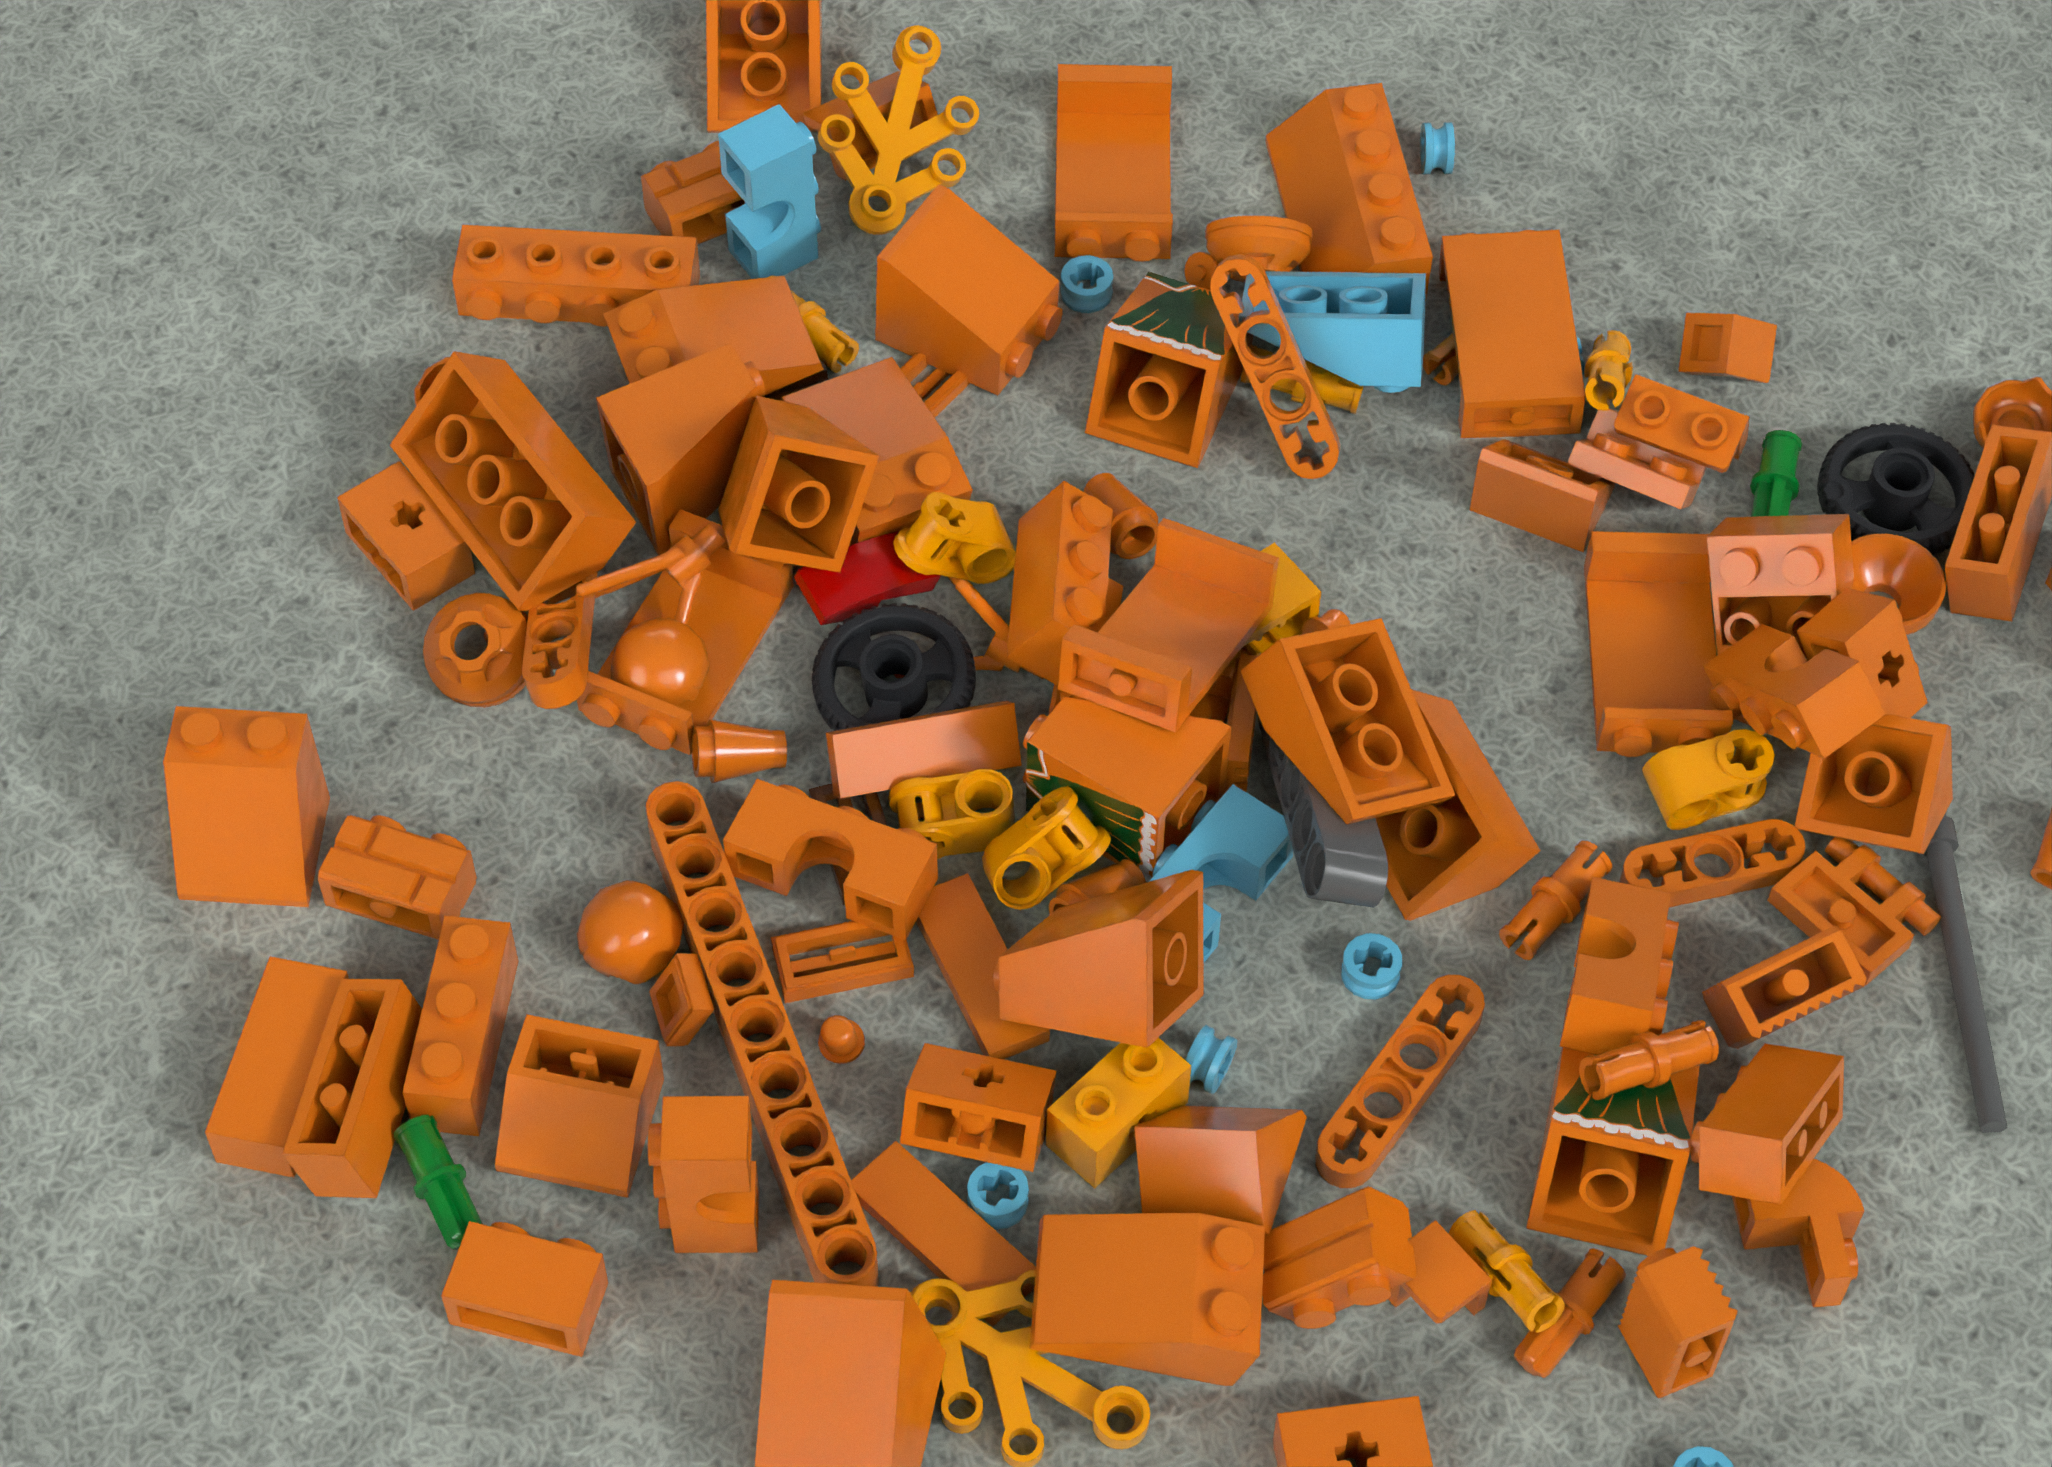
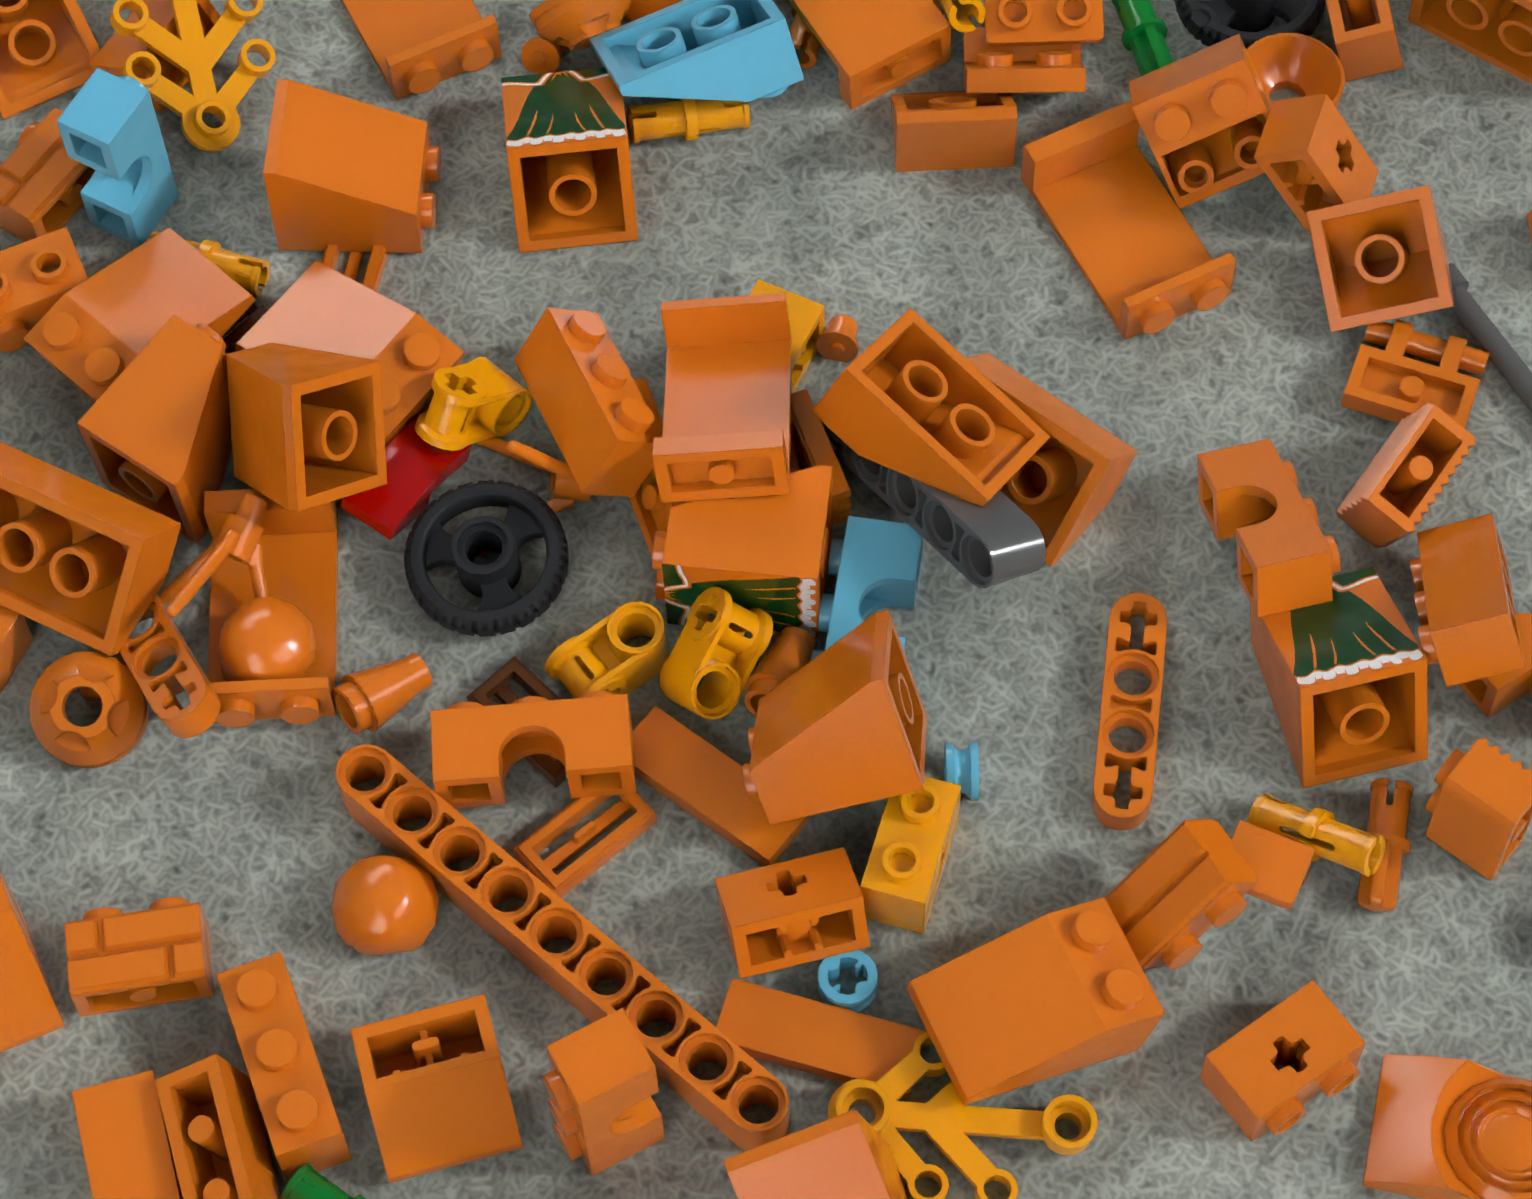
camera: 25 degrees left, 5 degrees up
(681, 1000) = (469, 944): orange tile -> none
(841, 1039) = (628, 911): orange piece -> none
(923, 746) = (553, 611): orange tile -> none
(1091, 269) = (444, 96): medium azure bush -> none
(1129, 518) = (615, 310): orange cone -> none
(1218, 1161) = (1025, 860): orange slope -> none
(1268, 369) = (673, 117): orange beam -> none
(1356, 956) = (1053, 602): medium azure bush -> none
(1555, 900) = (1170, 488): orange pin -> none
(1648, 1059) = (1345, 594): orange pin -> none
(1705, 778) = (1238, 319): light orange piece -> none
(1730, 844) = (1284, 371): orange beam -> none
(1794, 699) = (1305, 221): orange arch -> none

